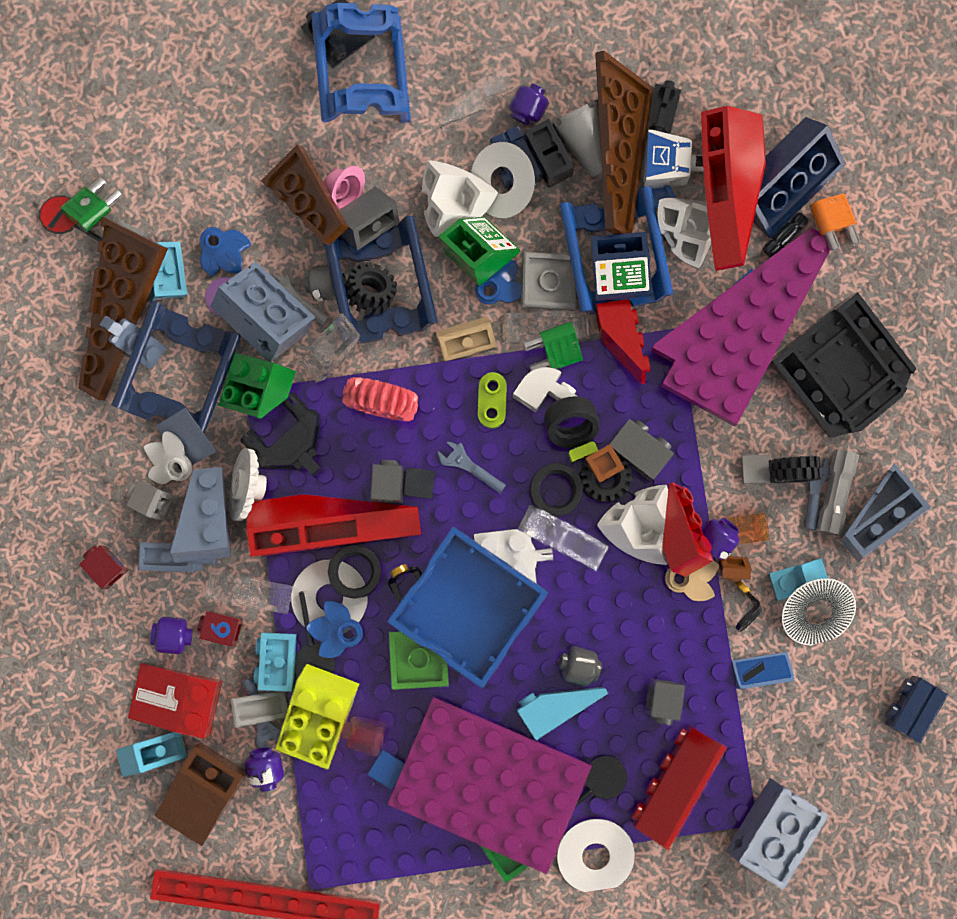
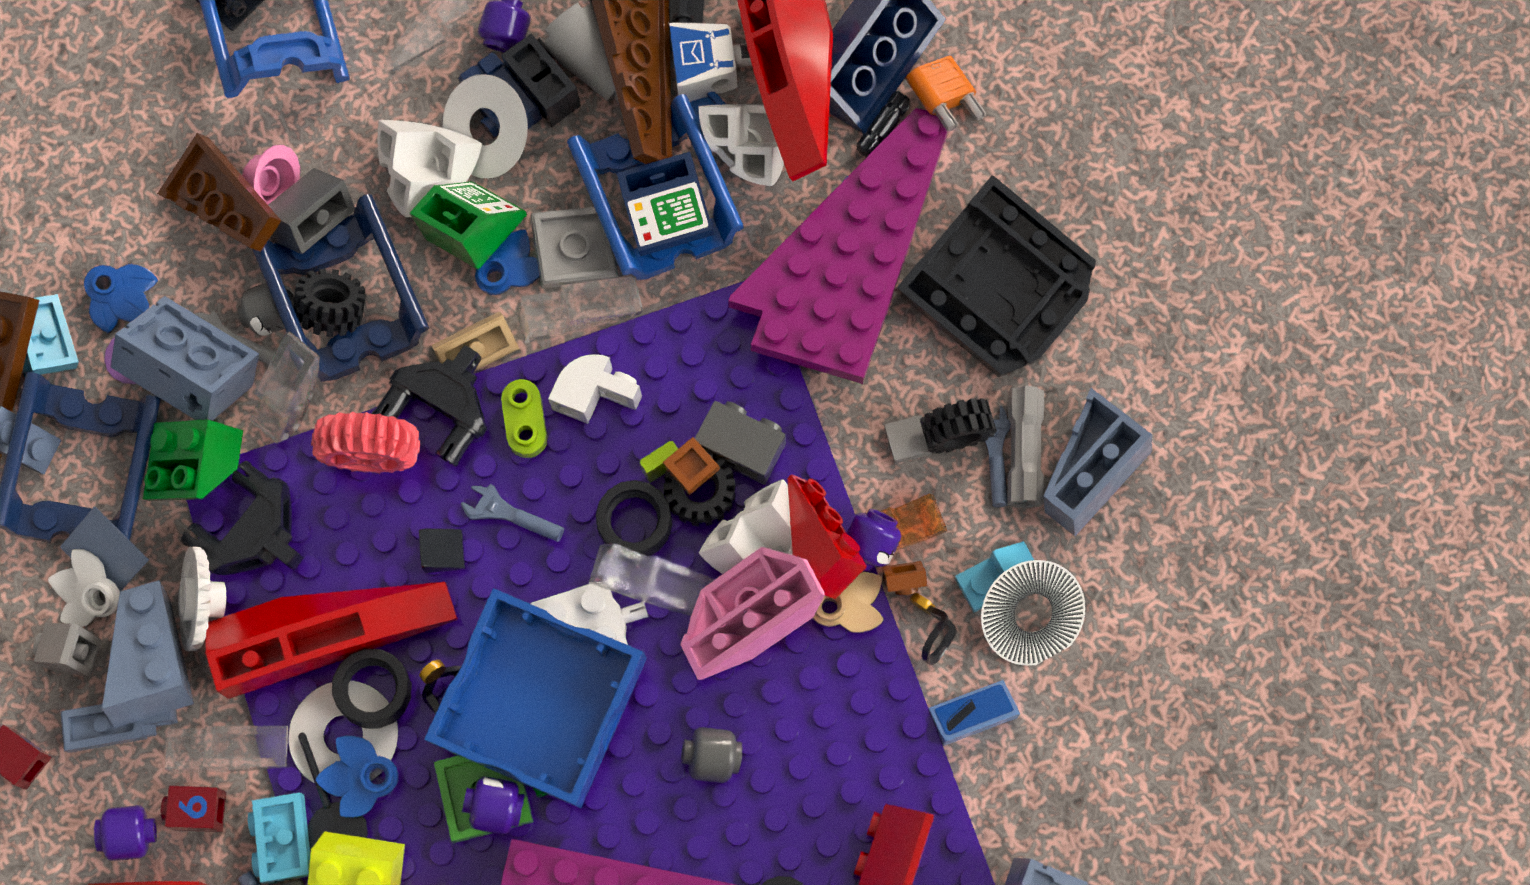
camera: 10 degrees left, 10 degrees down
(388, 482) = (395, 553): dark grey brick -> none
(426, 673) = (493, 805): none -> dark purple head
(442, 369) = (445, 389): none -> black connector
(551, 709) = (685, 822): medium azure slope -> none
(559, 345) = (601, 325): green piece -> none
(568, 408) = (626, 399): black tyre -> none
(619, 334) = (683, 298): red slope -> none
(625, 573) = (750, 610): none -> bright pink wedge
(664, 701) = (839, 774): dark grey brick -> none
(915, 708) = (1198, 719): dark blue brick -> none

